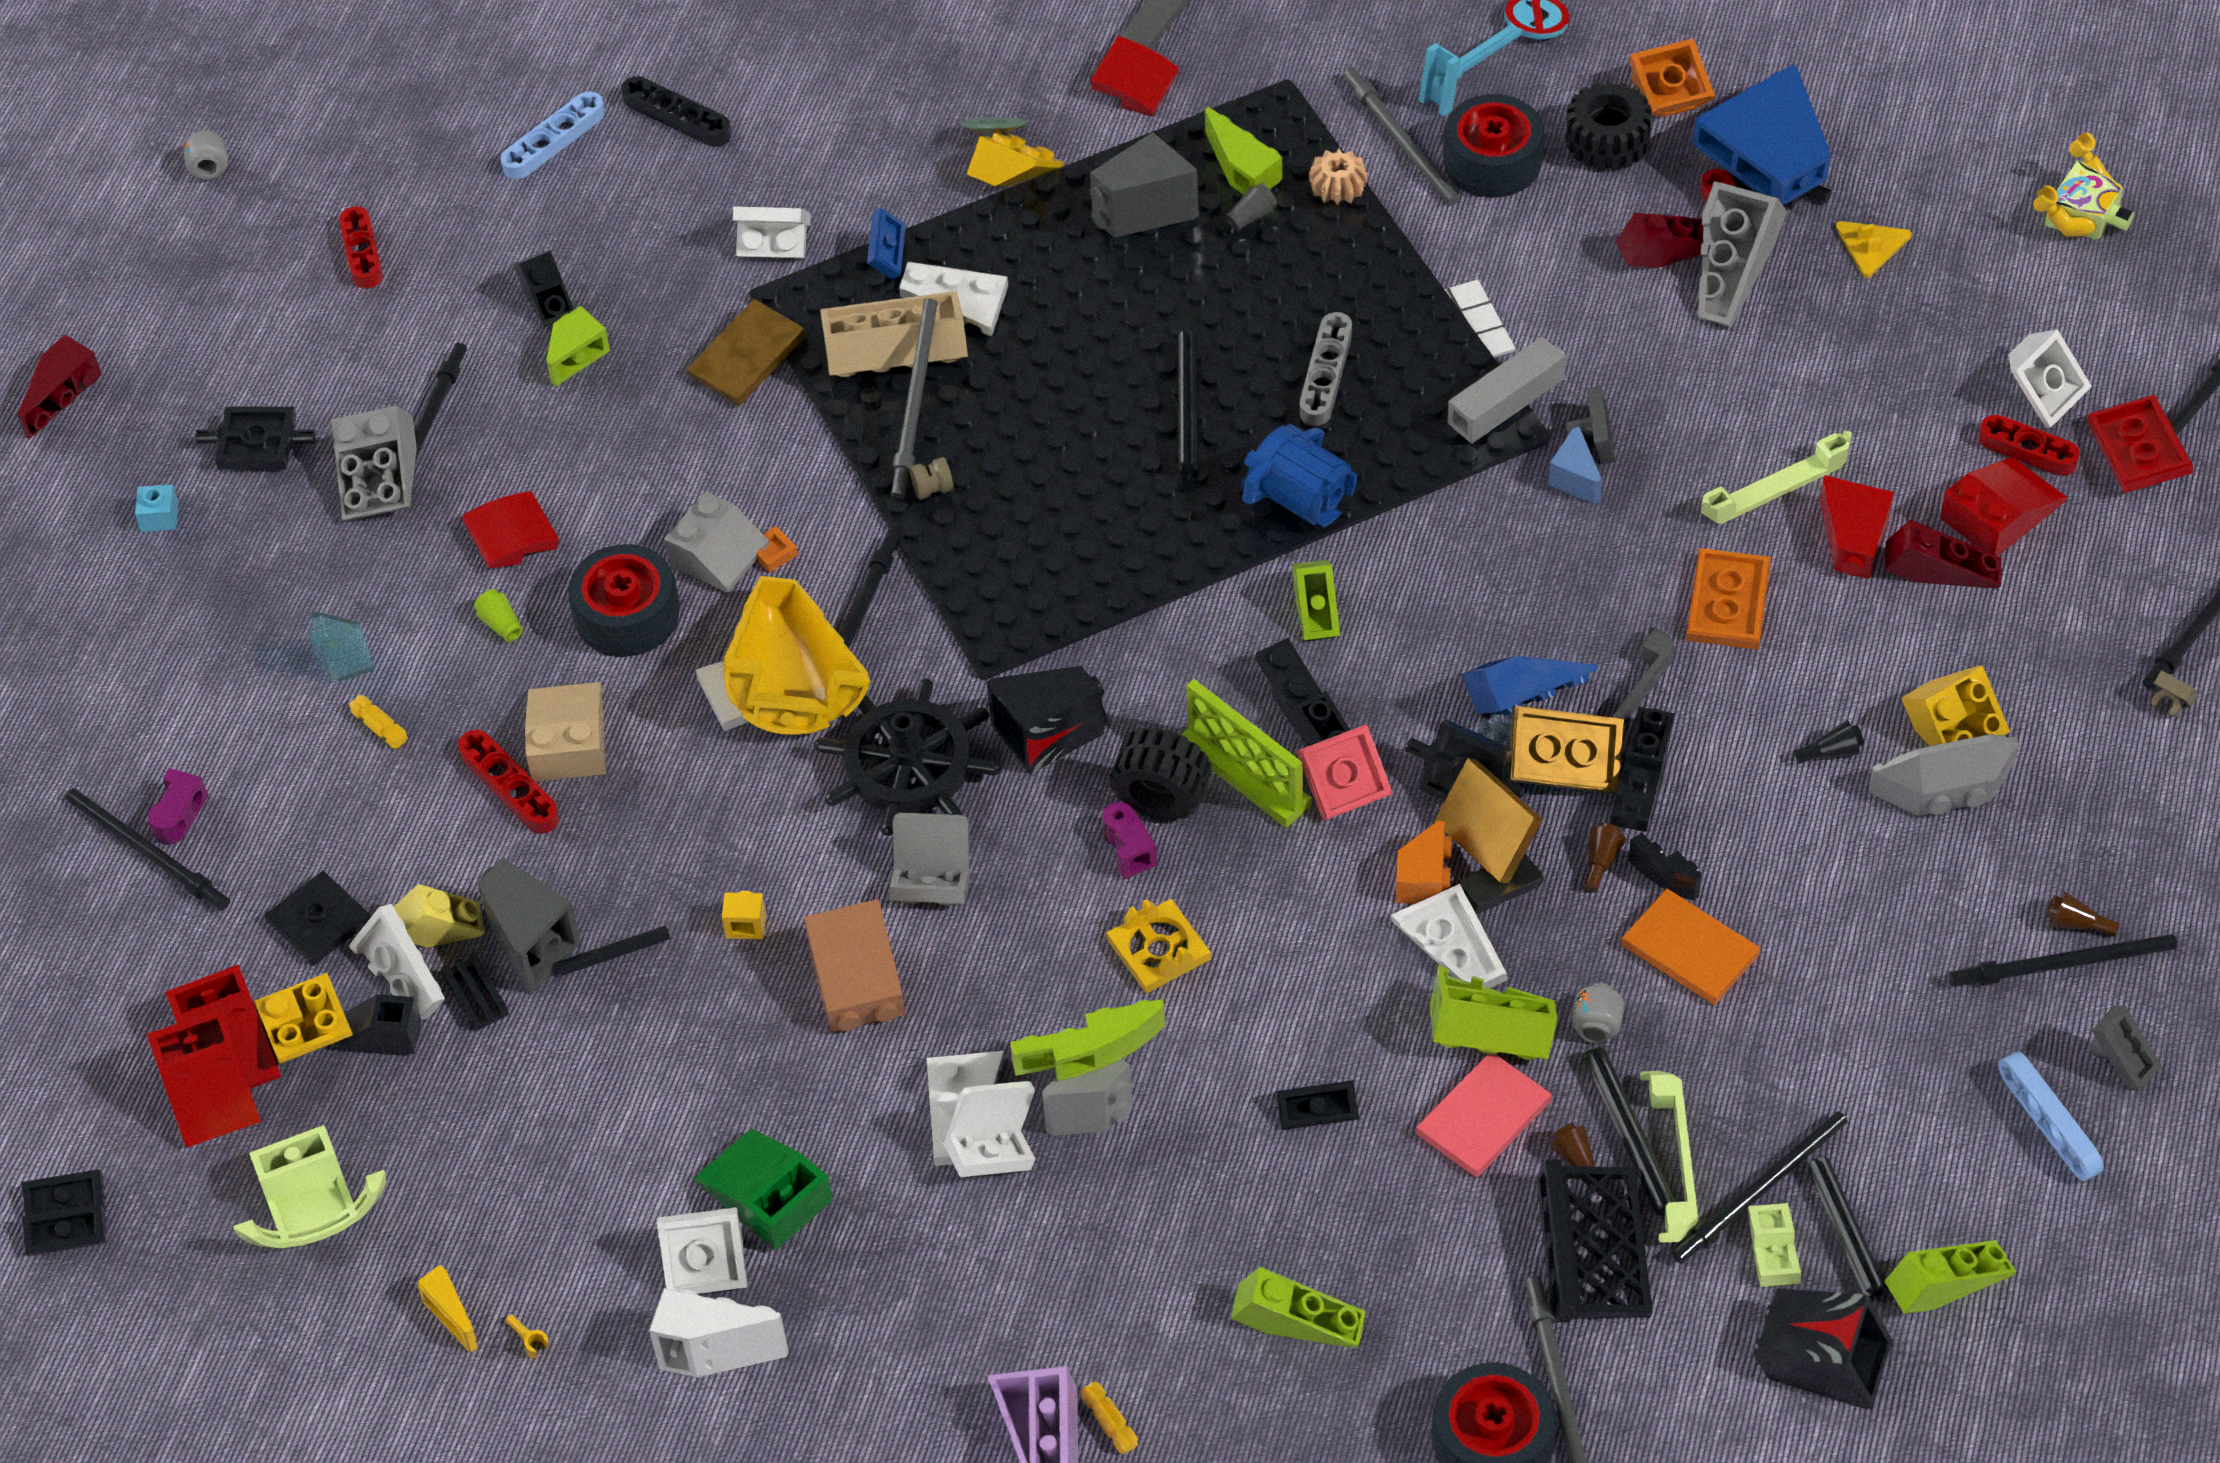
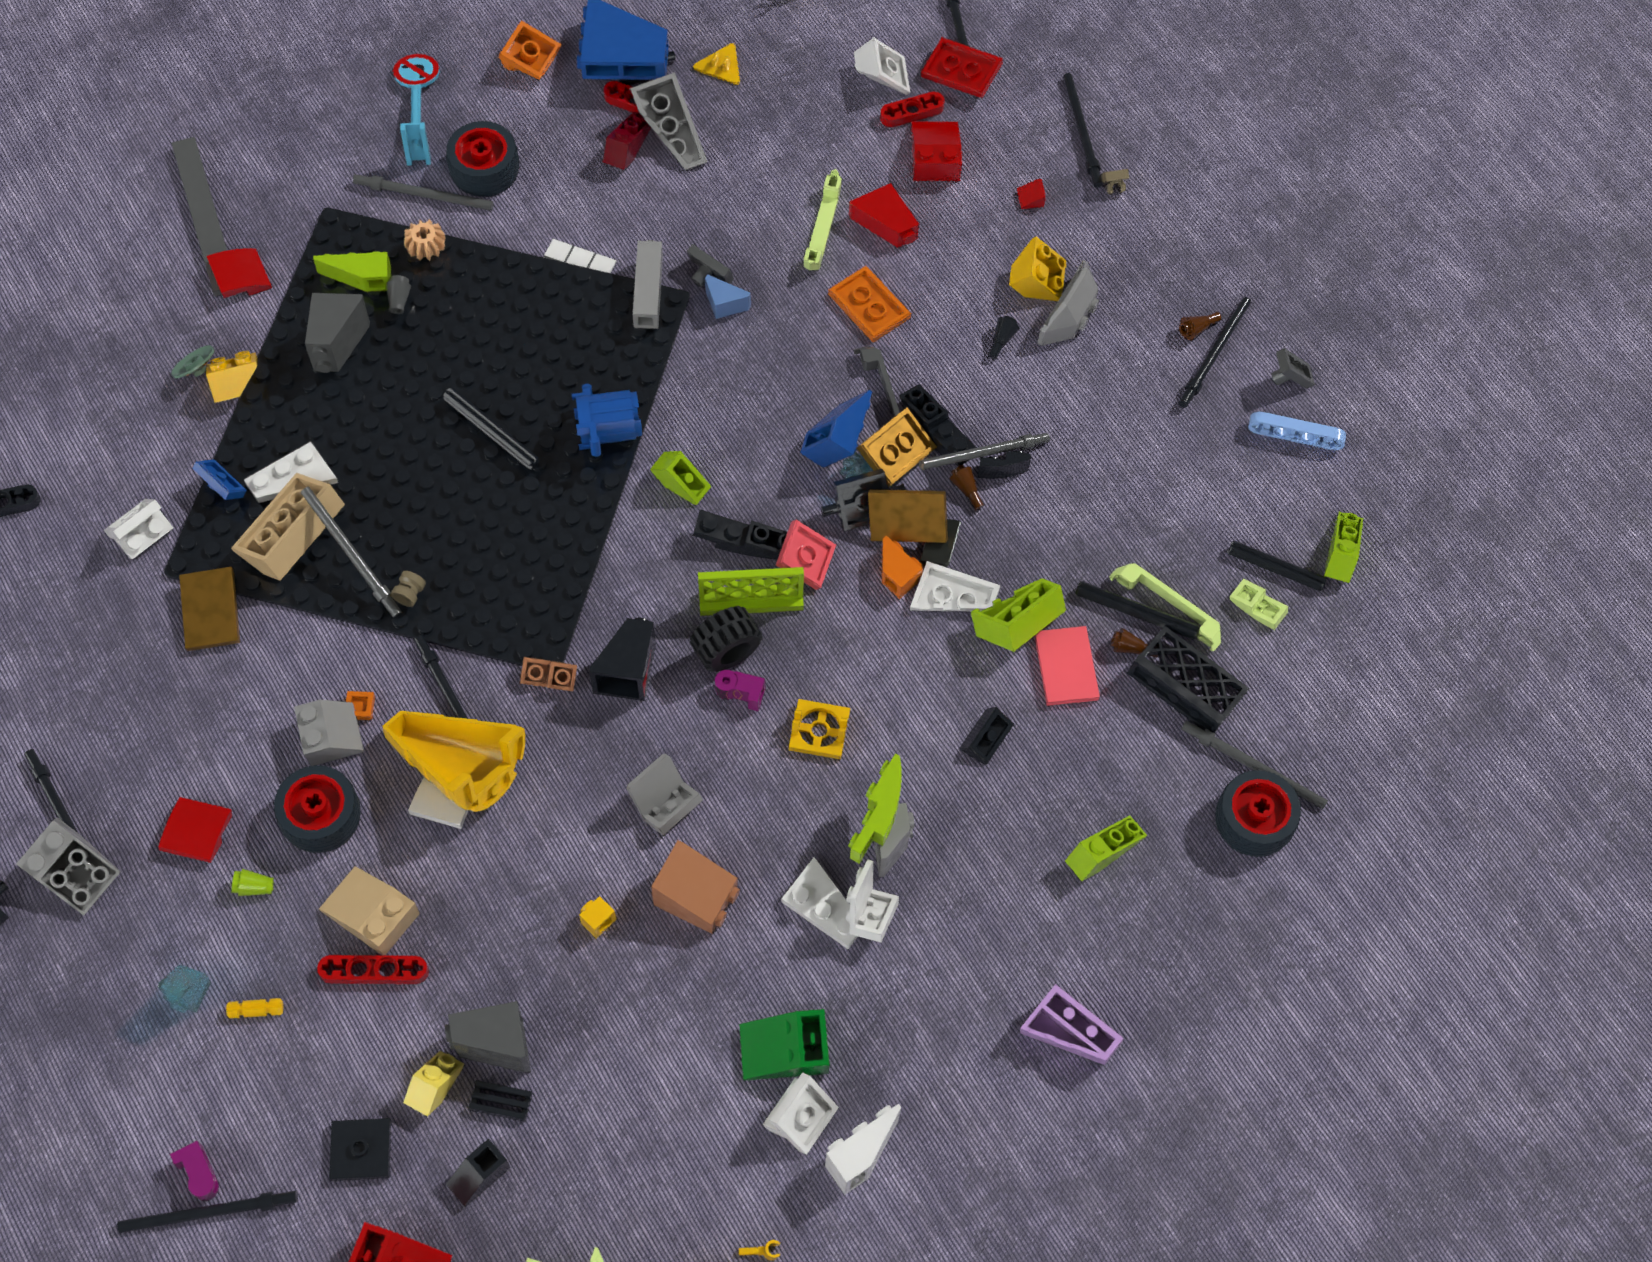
camera: 55 degrees left, 10 degrees up
(303, 1018) = (436, 1213): yellow slope -> none
(397, 959) = (443, 1126): white wing -> none
(544, 287) = (39, 674): black slope -> none
(575, 344) = (100, 690): lime slope -> none
(613, 950) = (547, 1004): black bar -> none
(907, 755) = (579, 751): black piece -> none
(965, 665) = (548, 674): none -> nougat slope
(1109, 1417) = (1086, 988): yellow axle -> none
(1325, 368) = (543, 348): light grey beam -> none
(1598, 1013) = (1060, 565): light grey head -> none
(1608, 126) = (528, 87): black tyre -> none
(1690, 946) = (1056, 494): orange tile -> none
(1708, 1231) = (1226, 624): black bar -> none
(1718, 864) = (1023, 442): none -> dark grey bar
(1824, 1344) = (1336, 631): black slope -> none
(1937, 558) = (942, 200): dark red slope -> none
(2055, 635) = (1032, 195): none -> red slope

